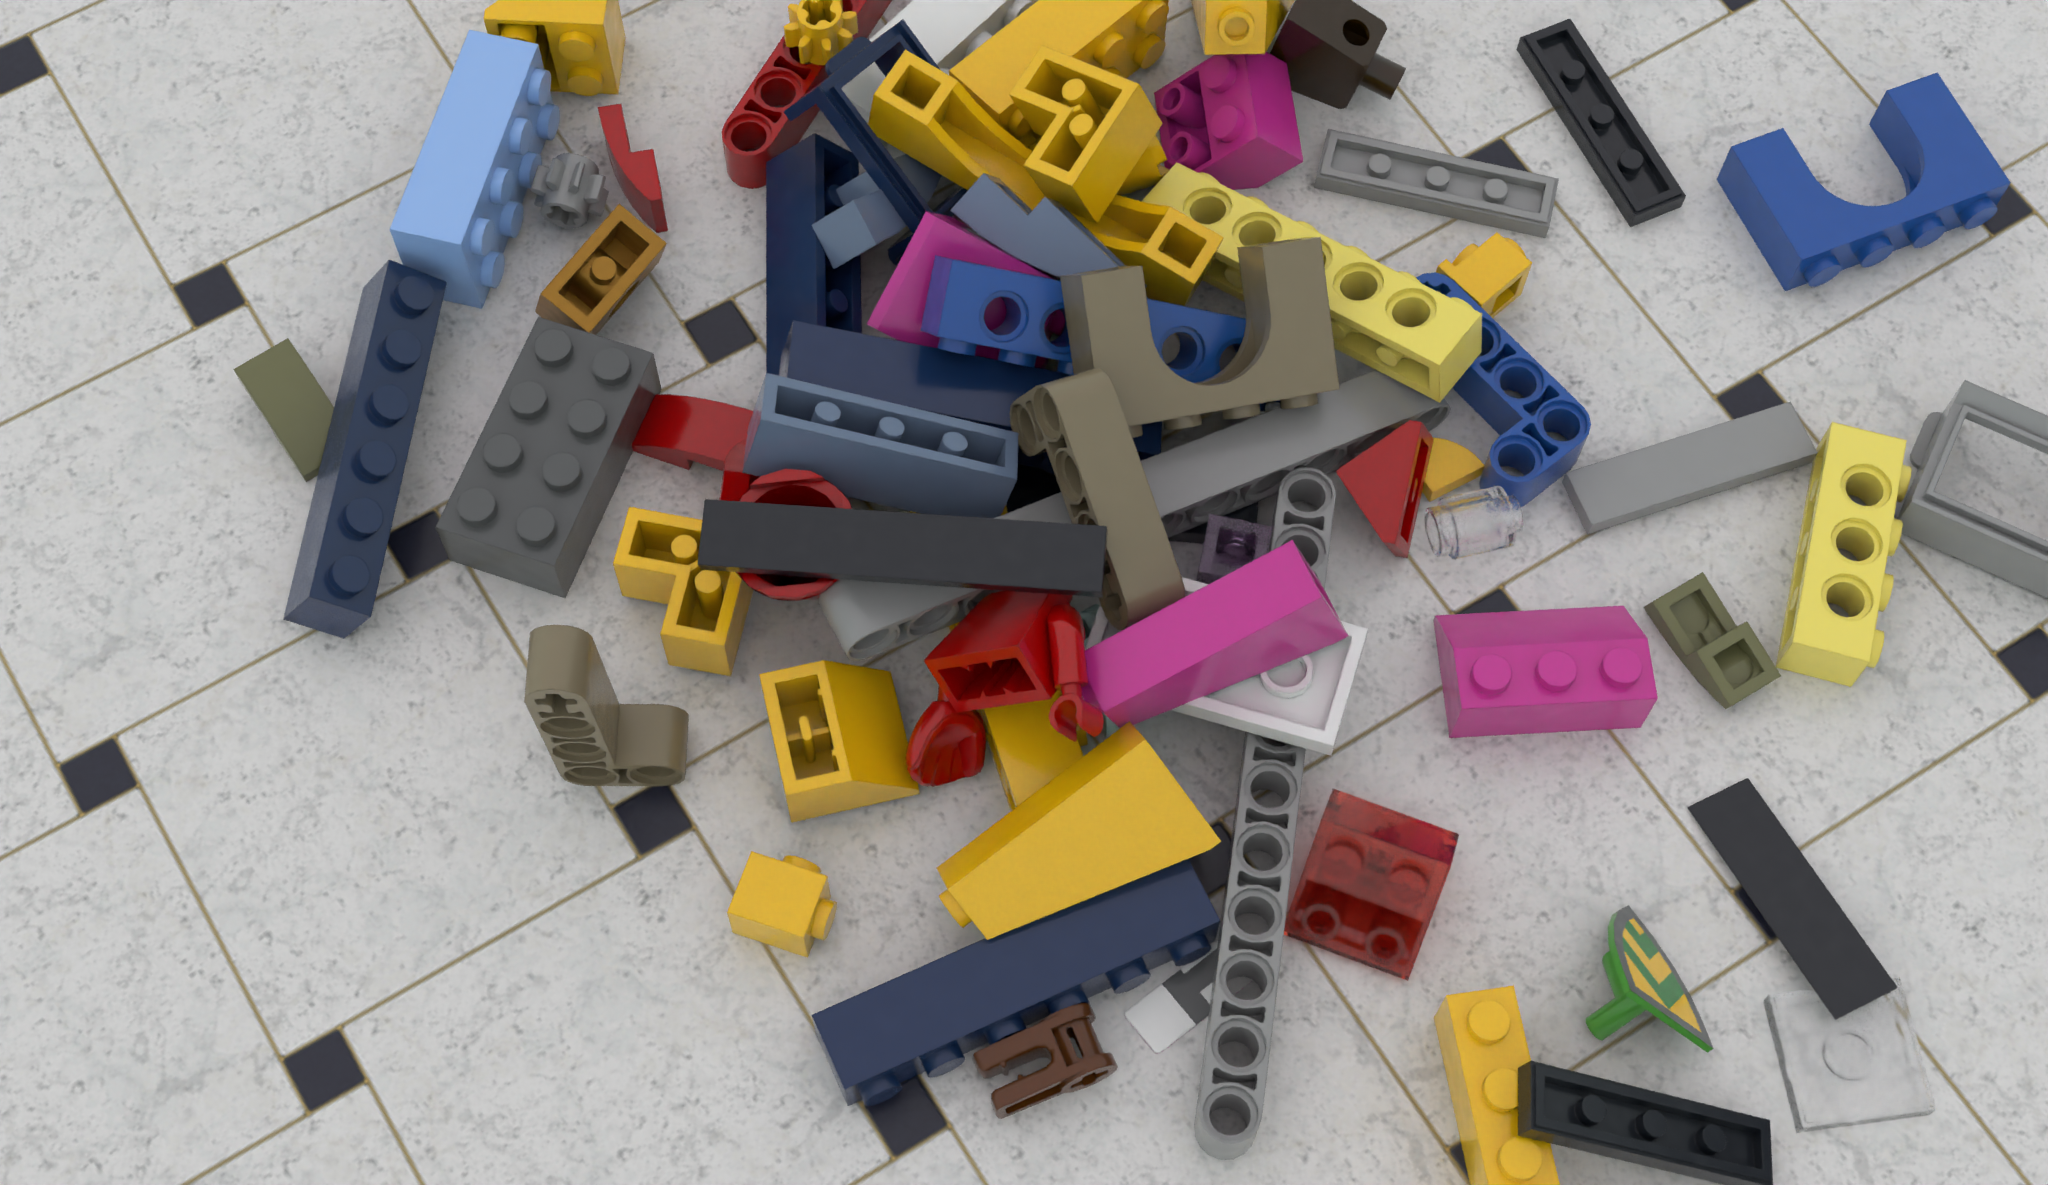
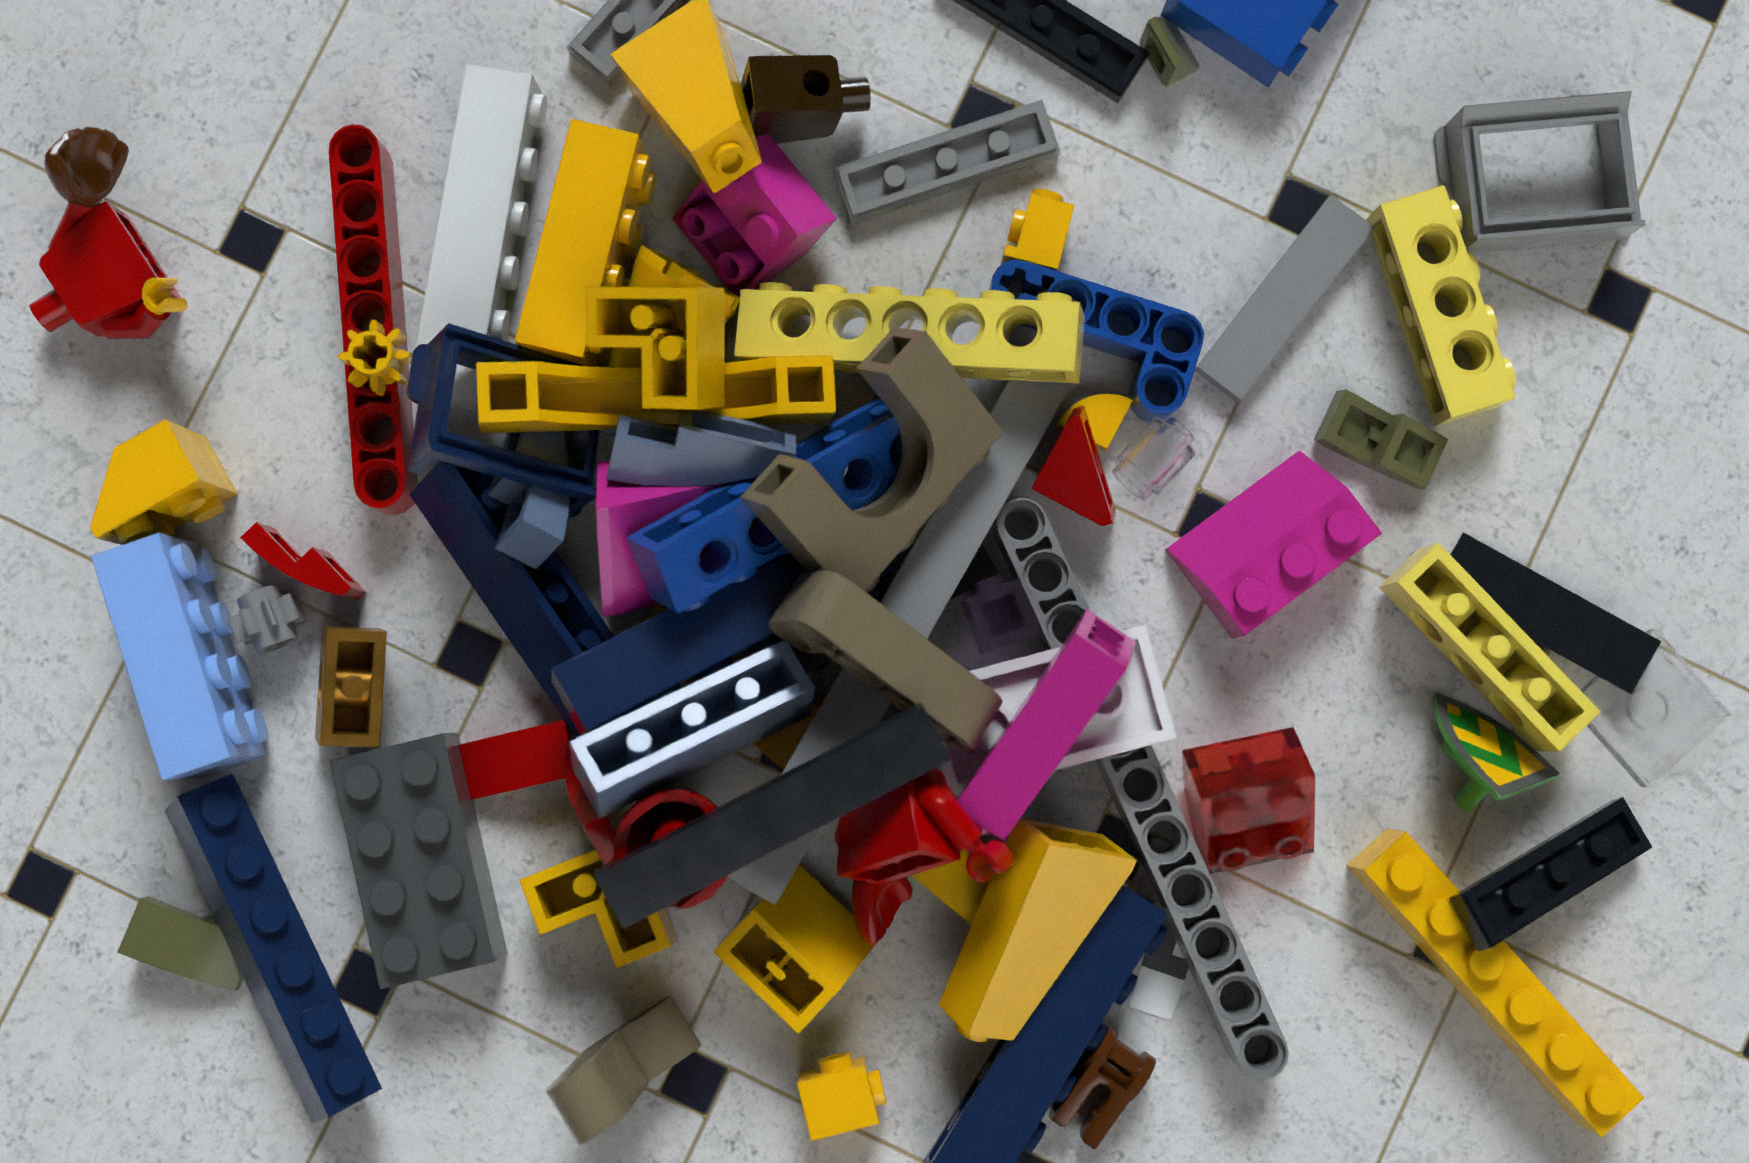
camera: 35 degrees left, 20 degrees up
(1705, 203) = (1168, 51): none -> olive slope
(1706, 878) = (1489, 649): none -> light yellow brick

